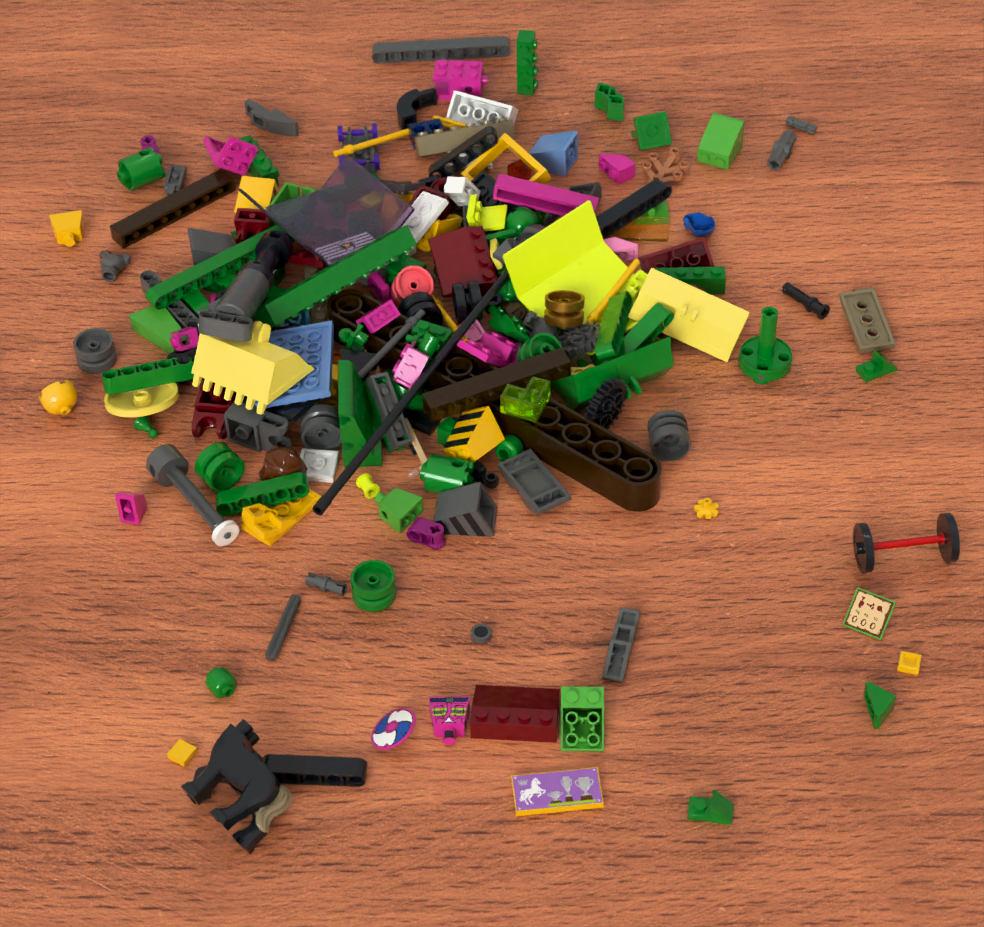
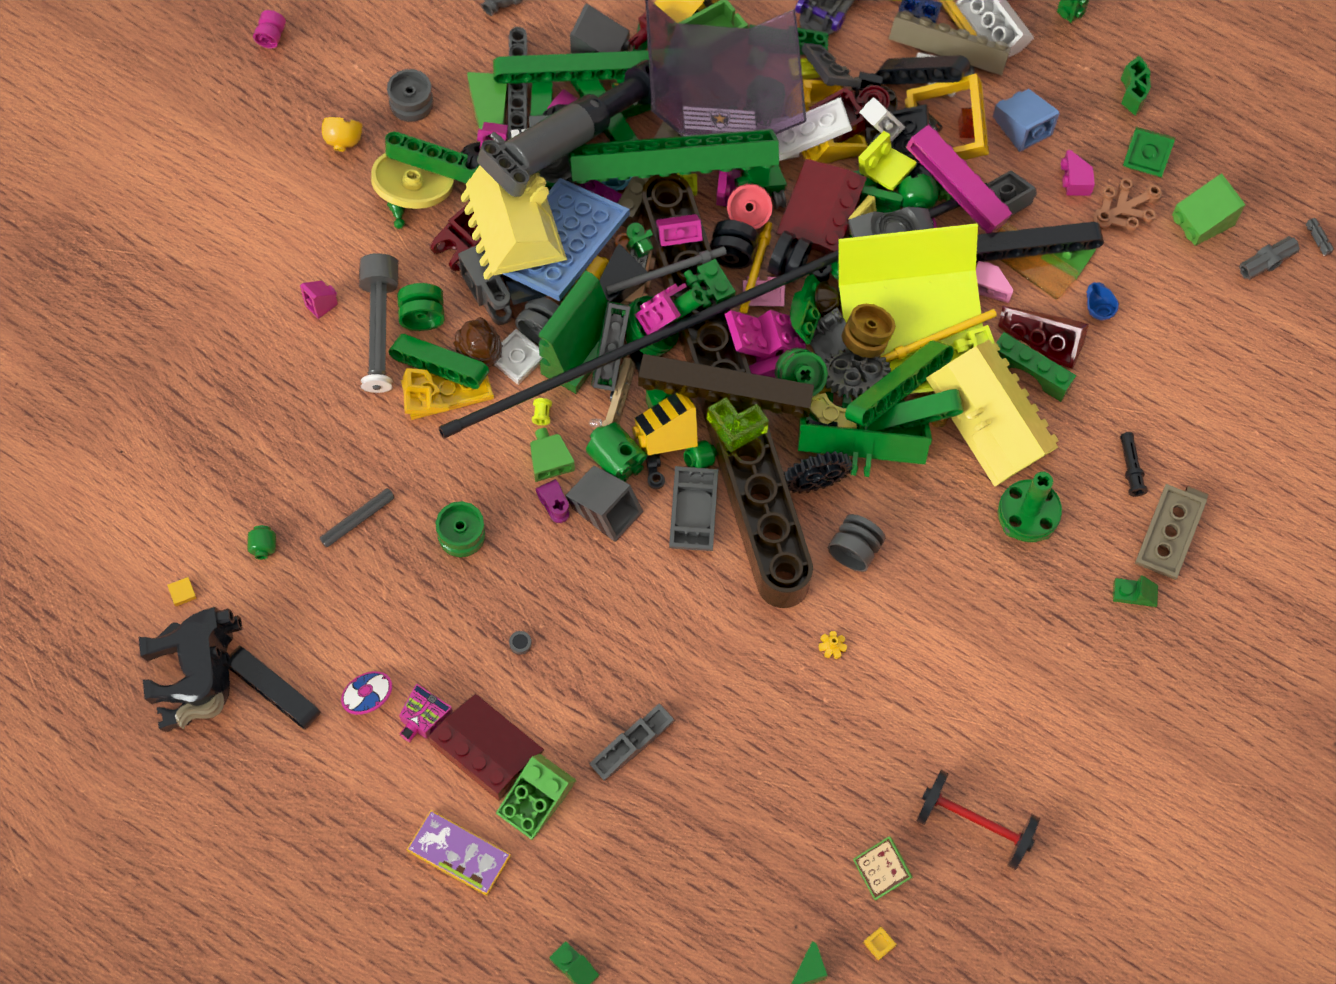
camera: 30 degrees right, 20 degrees up
(326, 584) = (426, 495): dark grey pin -> none

